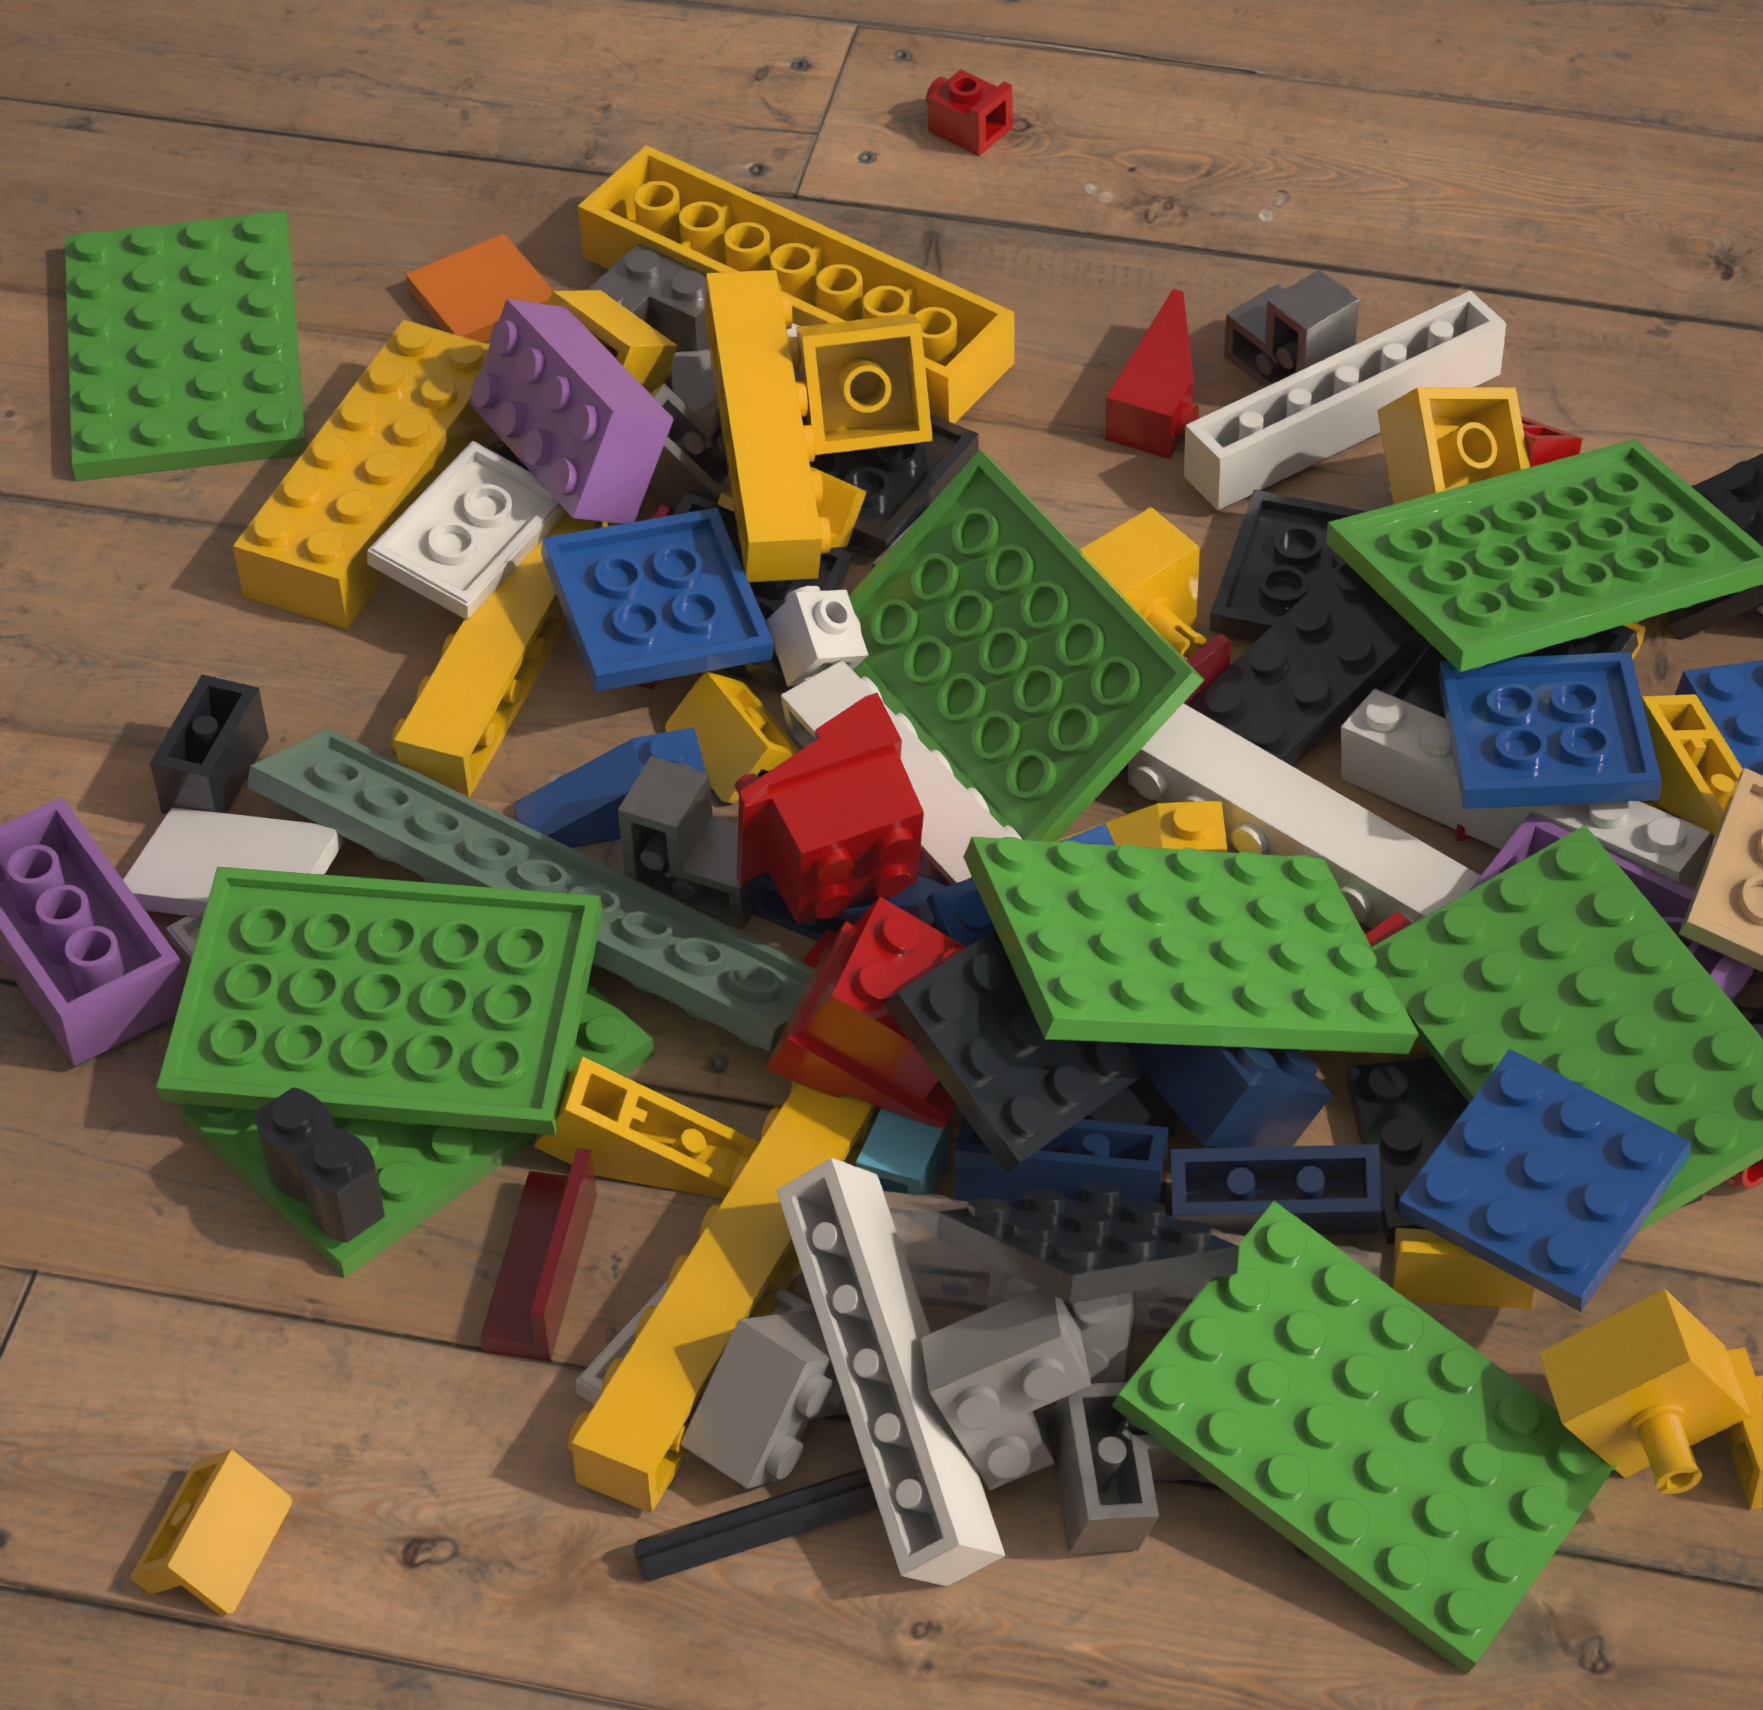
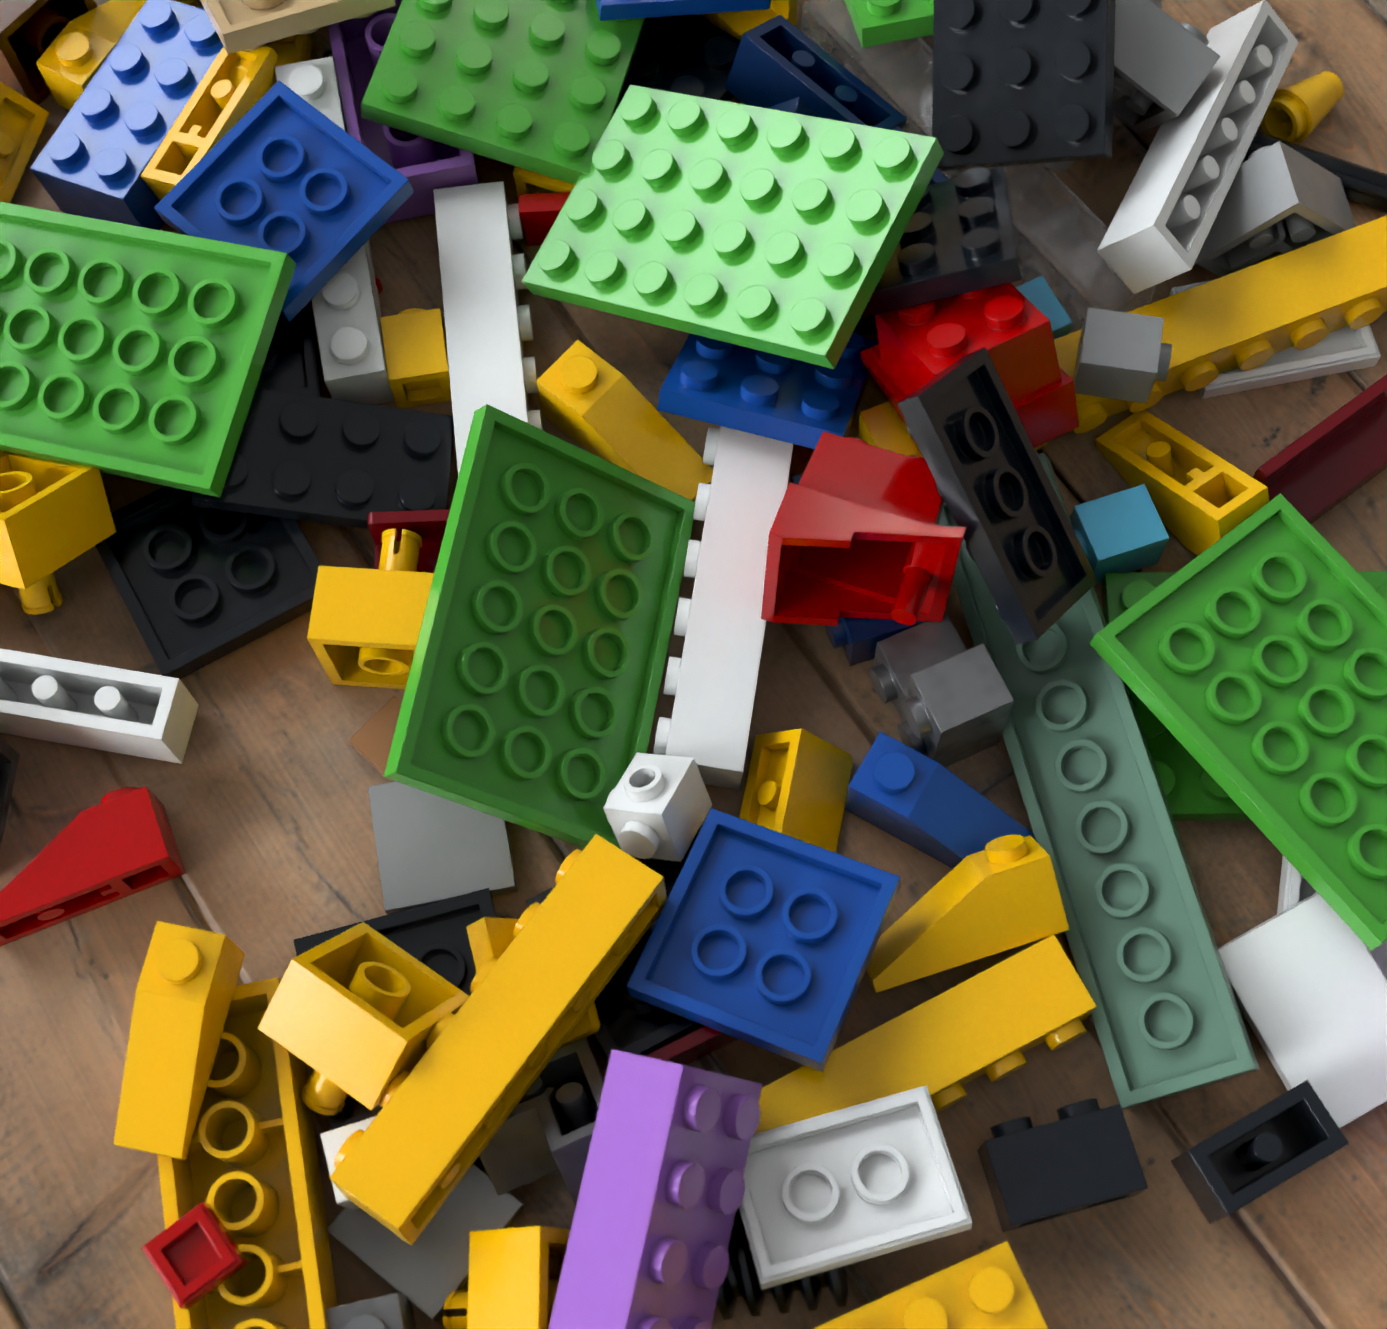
camera: 135 degrees left, 20 degrees up
(340, 669) = (1061, 1164): none -> black brick
(533, 743) = (973, 912): none -> yellow slope
(672, 1055) = (1120, 531): none -> medium azure brick
(752, 874) = (999, 494): none -> black plate
(780, 1122) = (1120, 355): none -> light grey brick
(828, 239) = (194, 1255): none -> red tile
(849, 1556) = (1302, 106): none -> yellow cone
(972, 303) = (174, 1036): none -> yellow slope
(1357, 776) = (416, 357): none -> yellow brick

